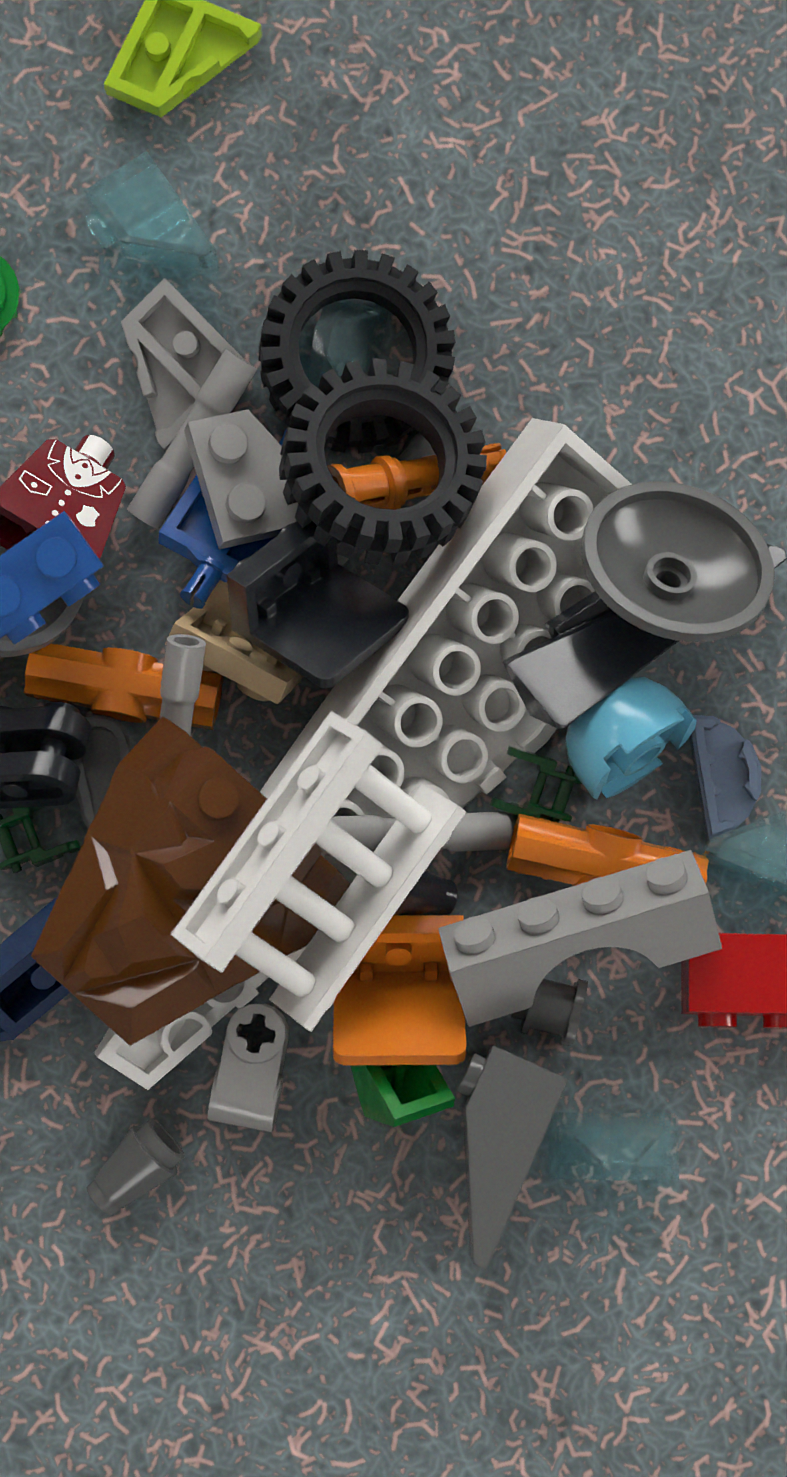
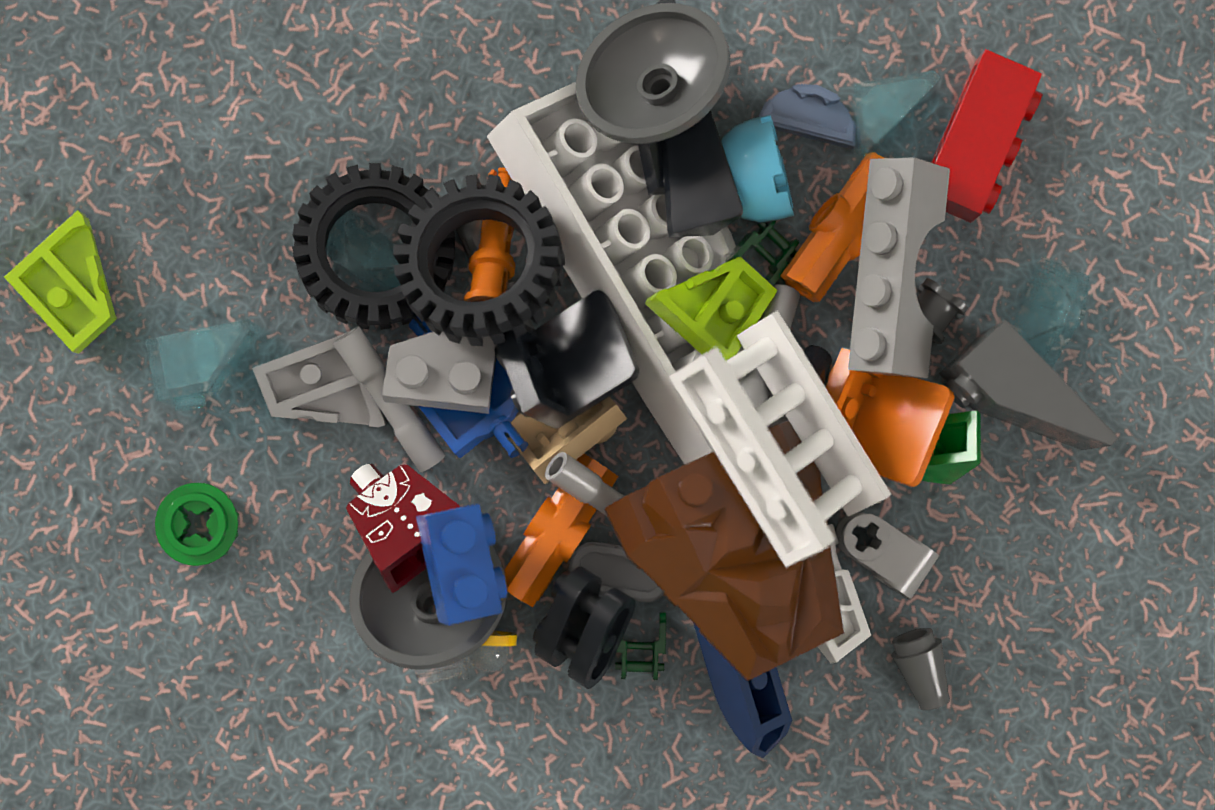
camera: 65 degrees left, 5 degrees up
(446, 748) = (715, 306): none -> lime wing

